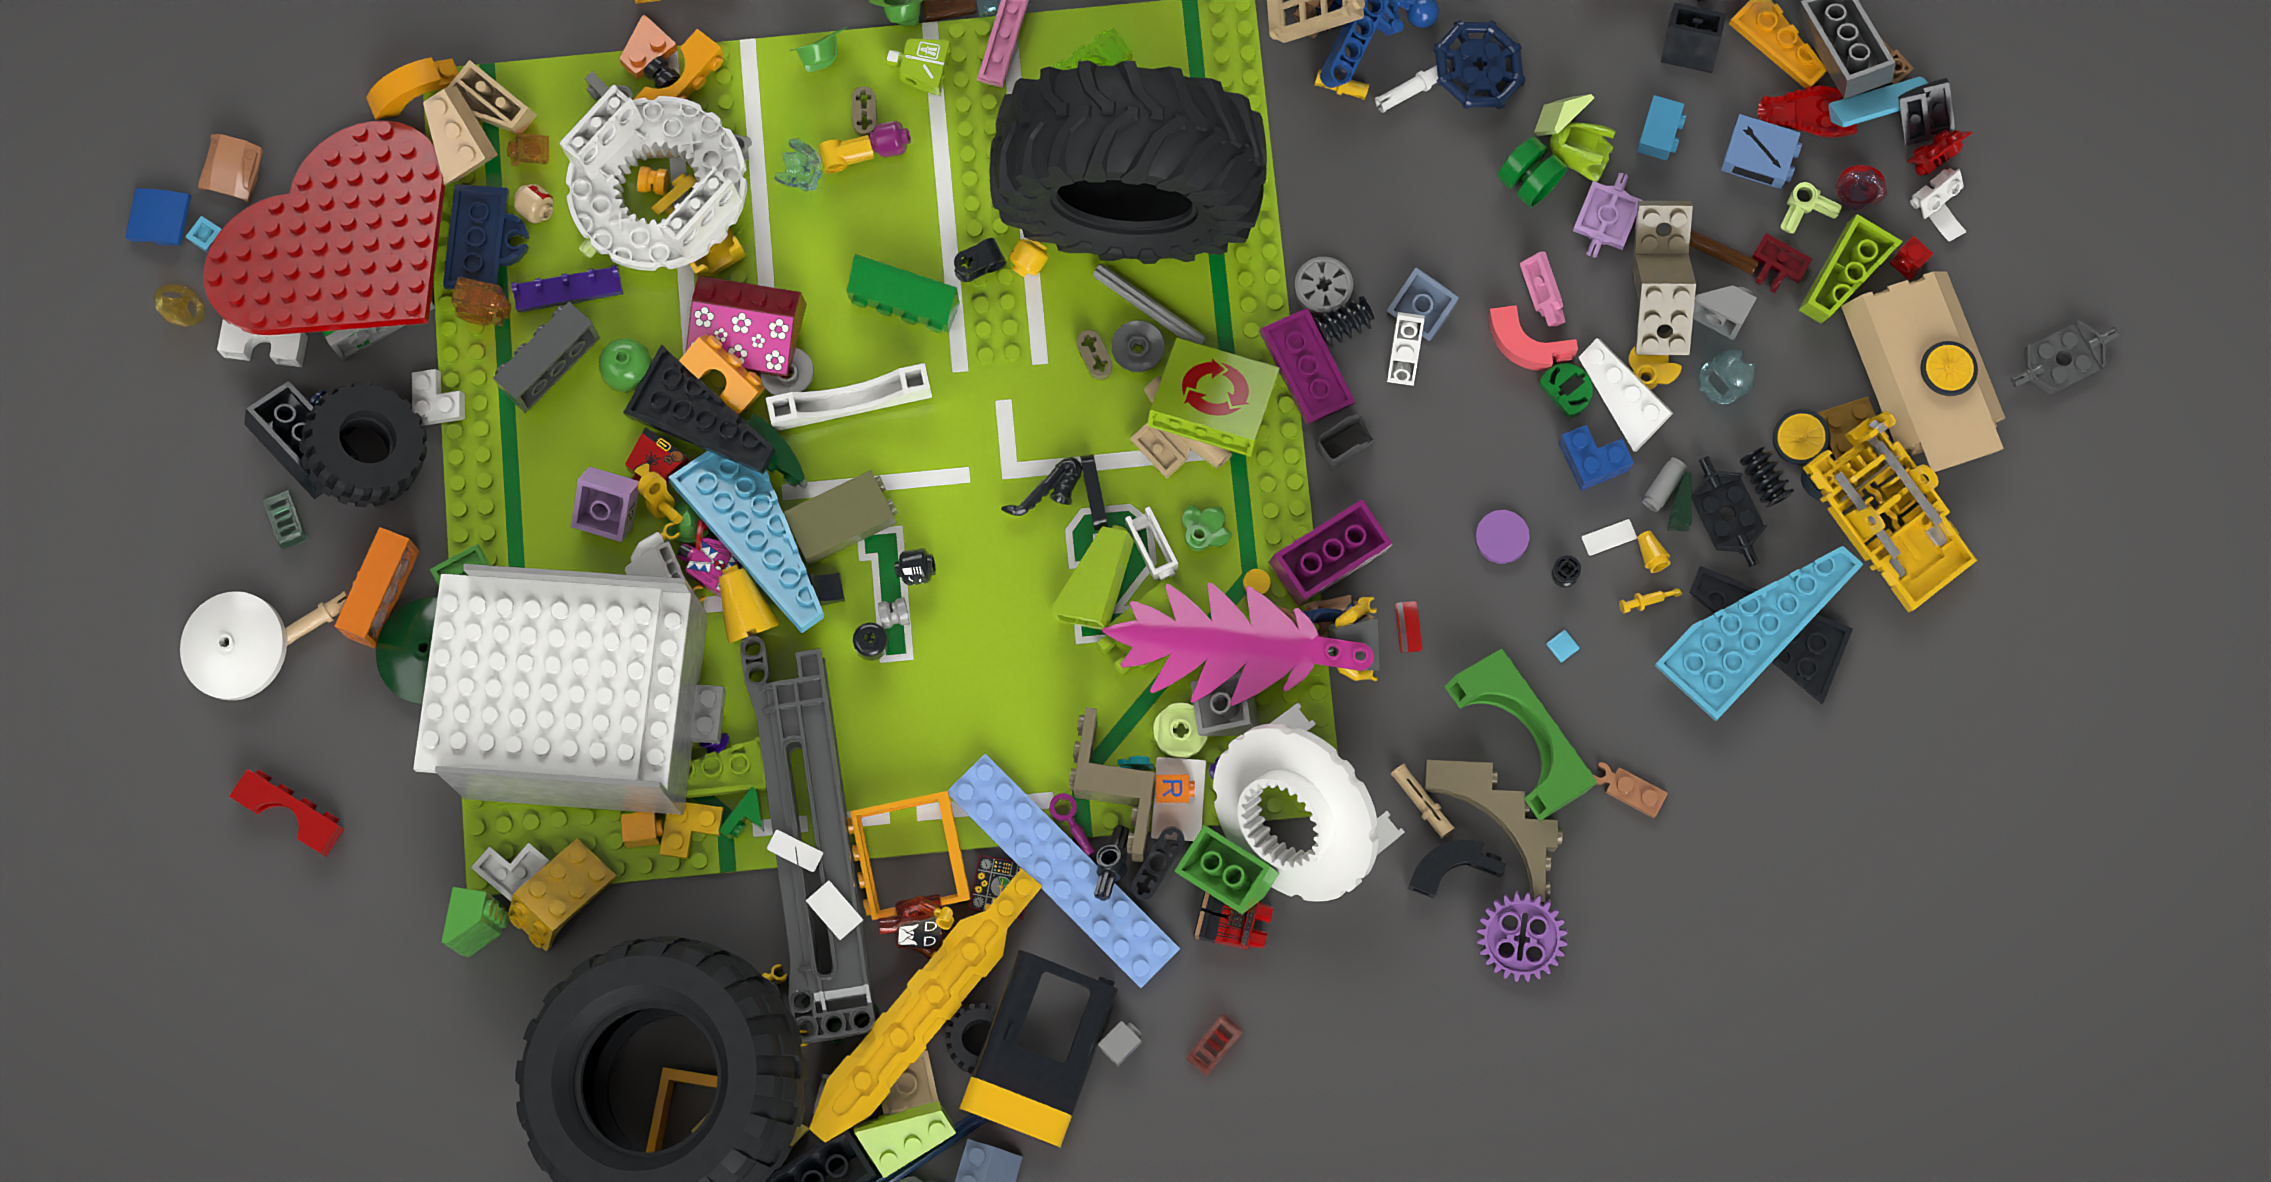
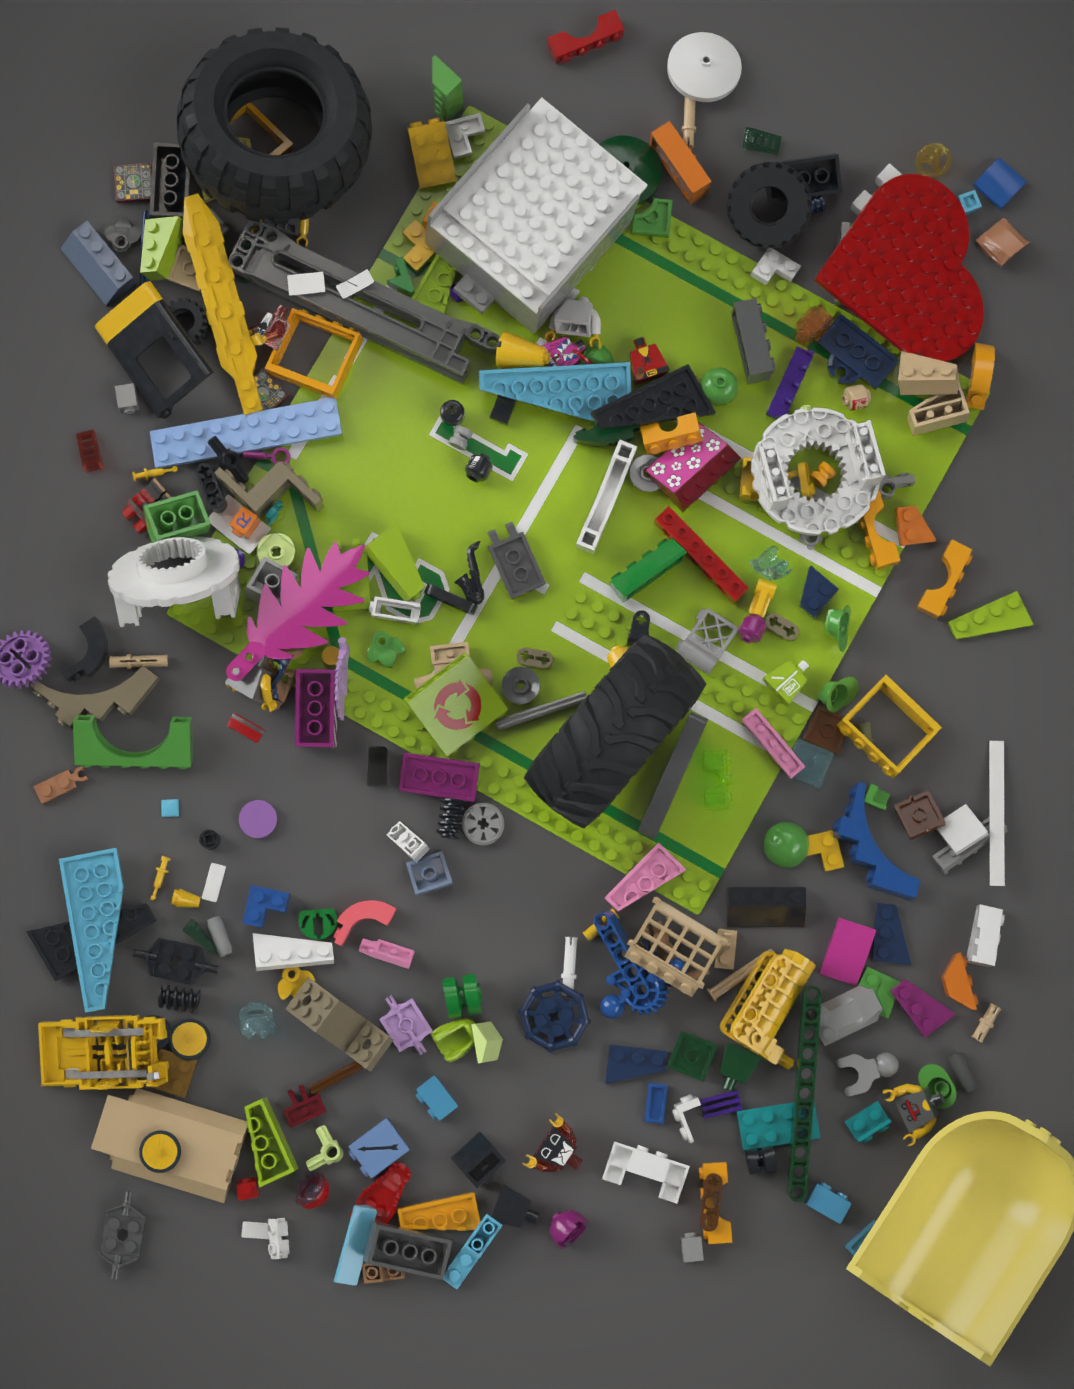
camera: 120 degrees right, 5 degrees up
(528, 149) = (893, 416): clear orange bracket -> none
(605, 504) = (638, 316): lavender brick -> none
(657, 498) = (621, 349): yellow piece -> none
(661, 73) = (887, 523): black wheel -> none
(796, 100) = (816, 592): none -> dark blue wing
(841, 517) = (538, 446): olive brick -> none
(842, 247) = (701, 555): none -> red brick
(960, 180) = (696, 652): none -> light grey piece
(997, 451) = (515, 562): none -> dark grey tile
(1193, 952) = (152, 473): none -> yellow piece
(1257, 70) = (646, 876): none -> bright pink wing
(1269, 551) = (341, 677): none -> lavender animal
(1724, 309) = (295, 1048): light grey slope -> none
(1926, 111) = (330, 1267): black slope -> none
(1944, 147) = (302, 1257): red hinge -> none

